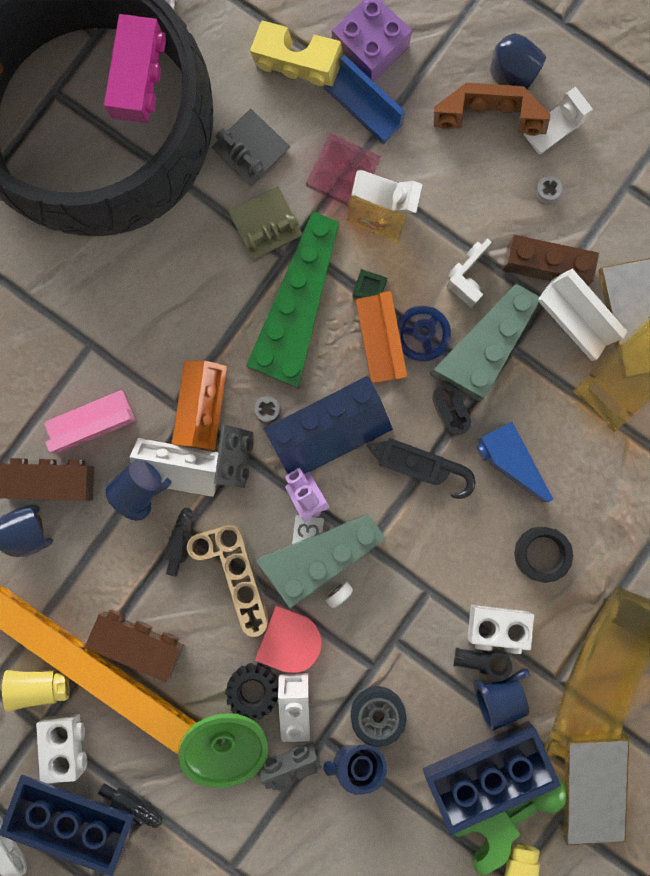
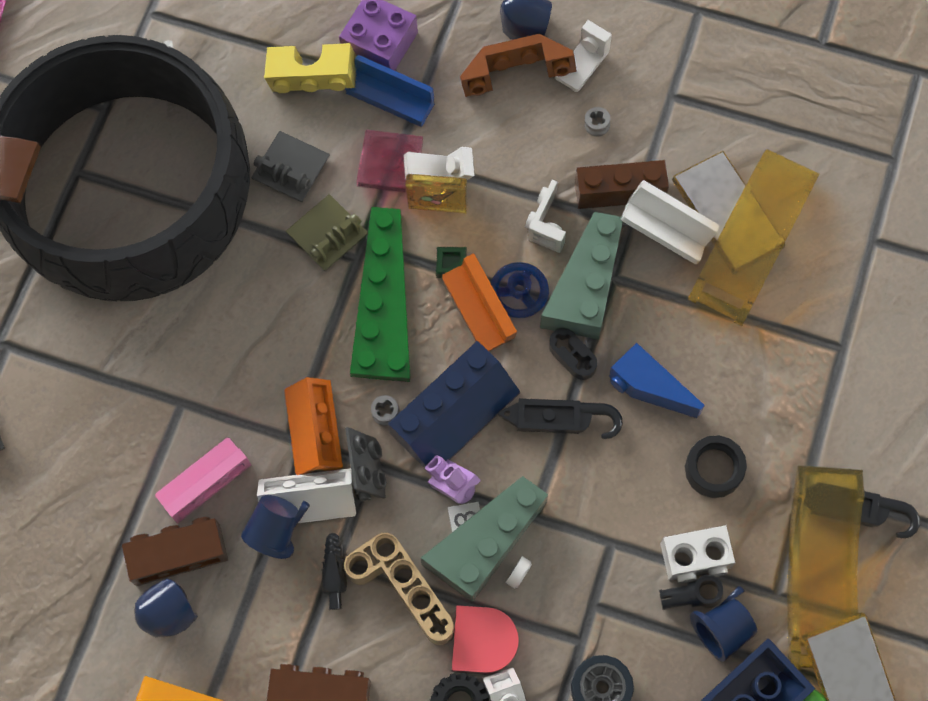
camera: 20 degrees left, 15 degrees down
(134, 69) = (166, 114): dark pink brick -> none

